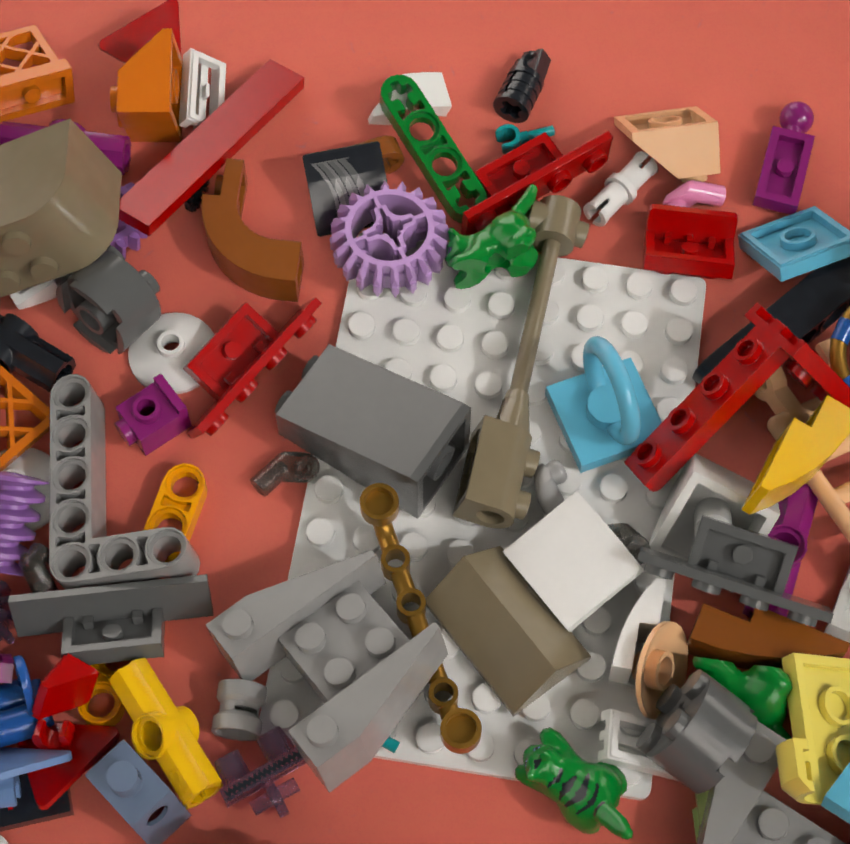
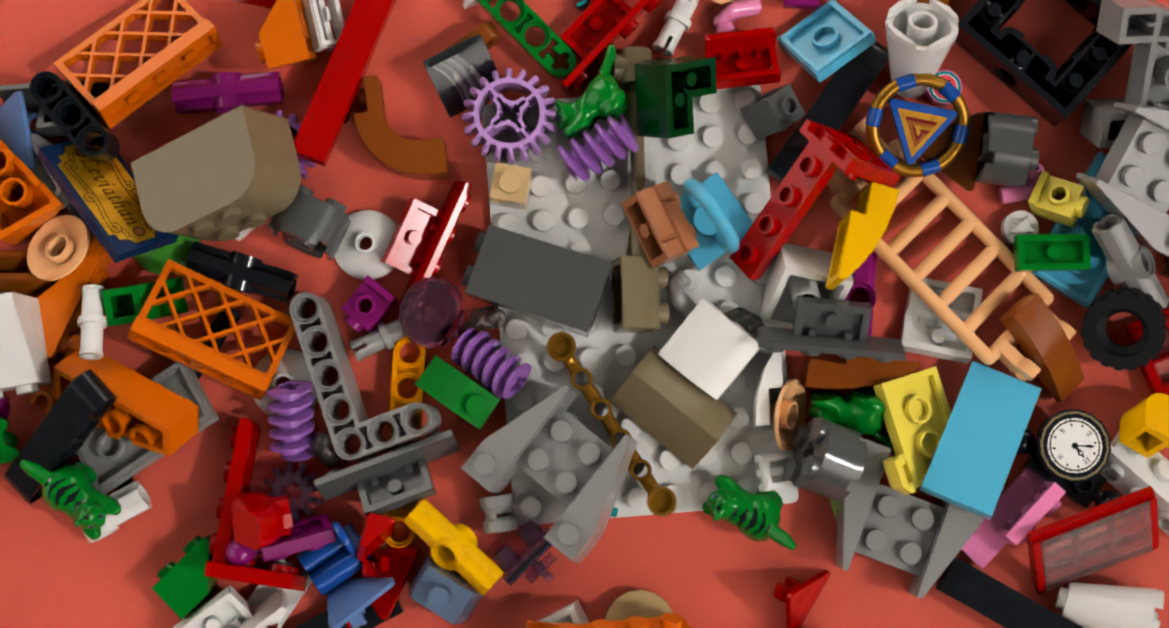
camera: 10 degrees left, 20 degrees up
(160, 457) = (383, 337): none -> light grey pin
(227, 438) = (431, 312): none -> clear pink tile
(230, 540) = (457, 392): none -> green slope
(283, 513) = (490, 363): none -> medium lavender piece
(369, 313) = (511, 186): none -> tan brick
(488, 292) = (599, 148): none -> medium lavender piece
(544, 390) = (660, 224): none -> nougat brick
(590, 246) = (667, 93): none -> dark green brick
(715, 304) = (773, 111): none -> dark grey brick

